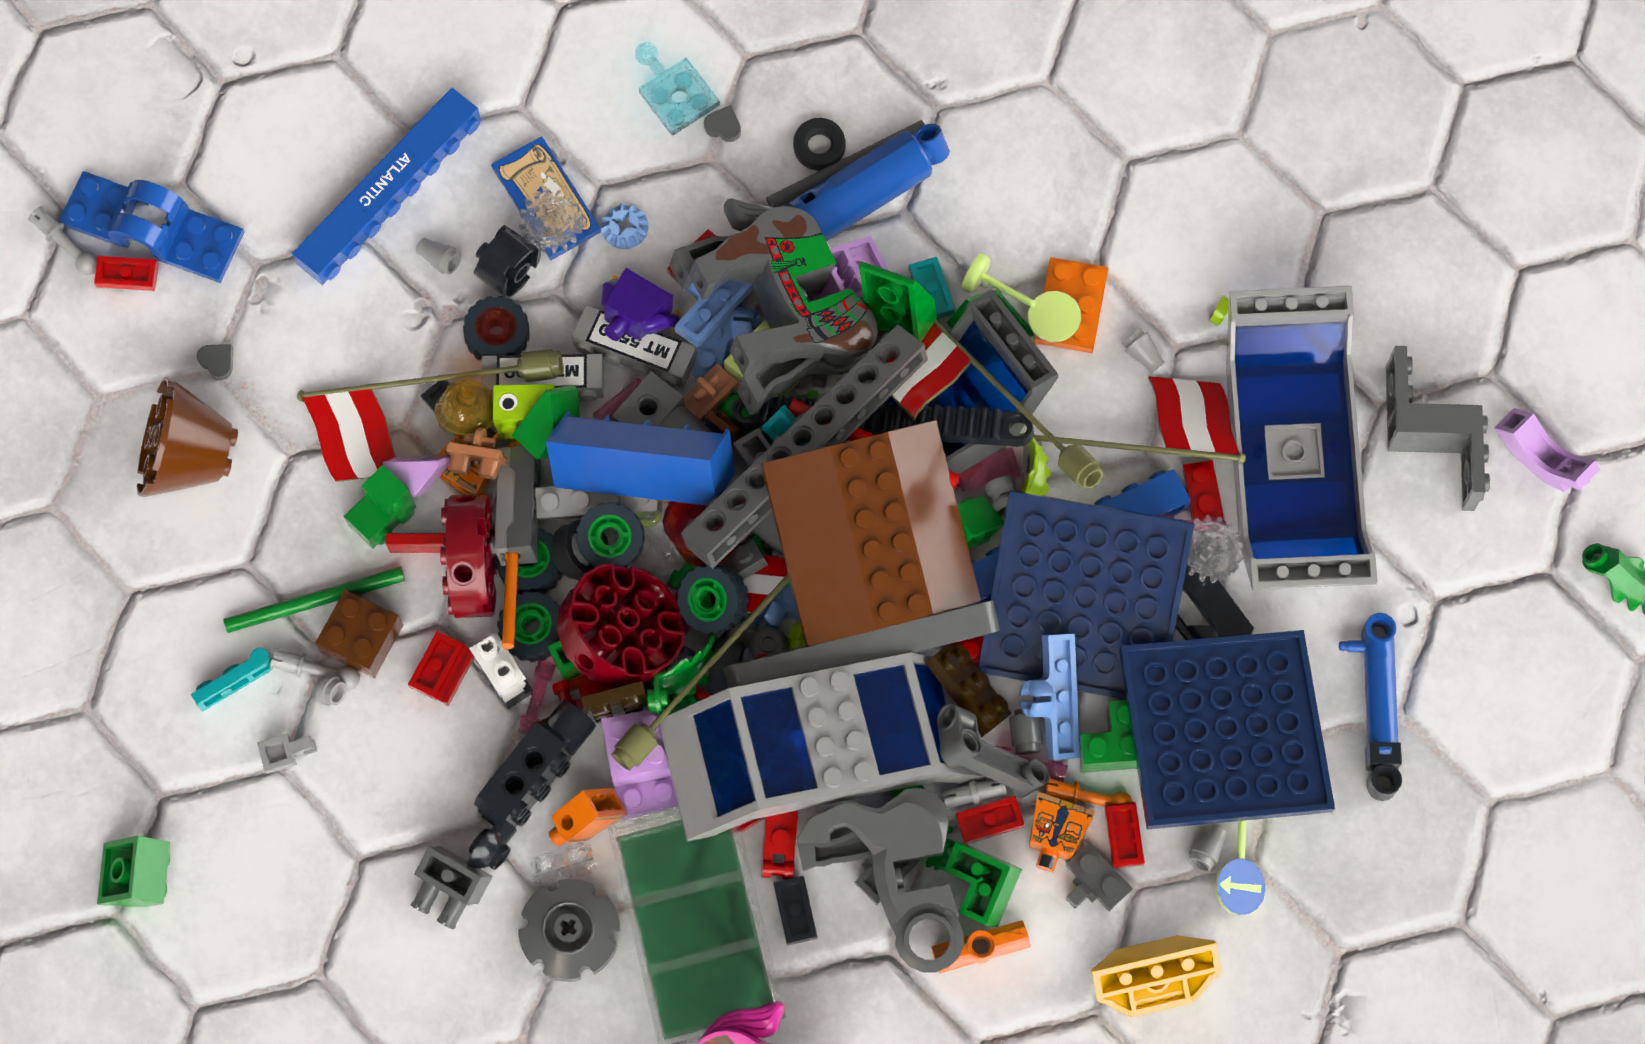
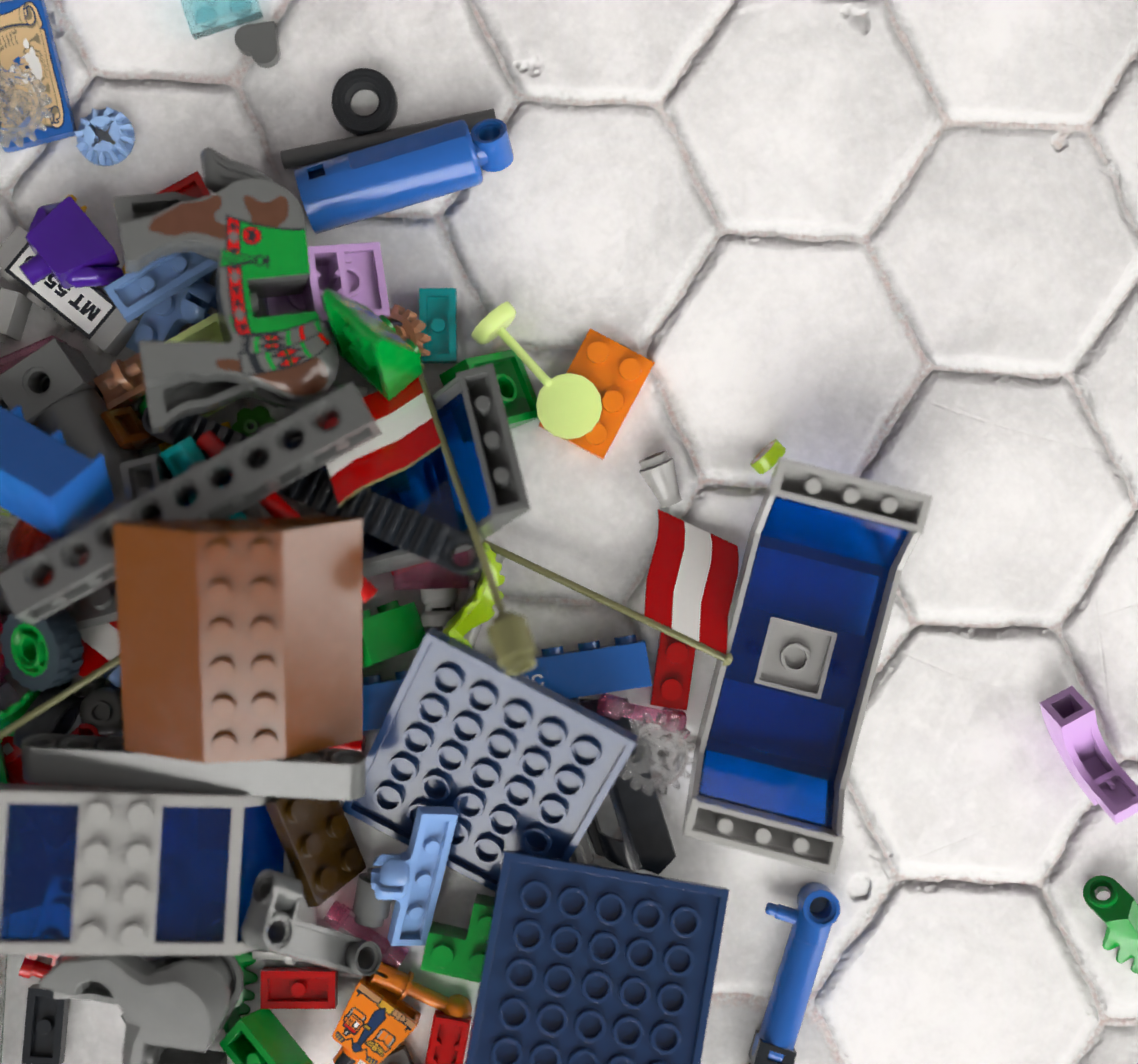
camera: 15 degrees right, 15 degrees up
(1436, 428) = (1004, 698): dark grey bracket -> none

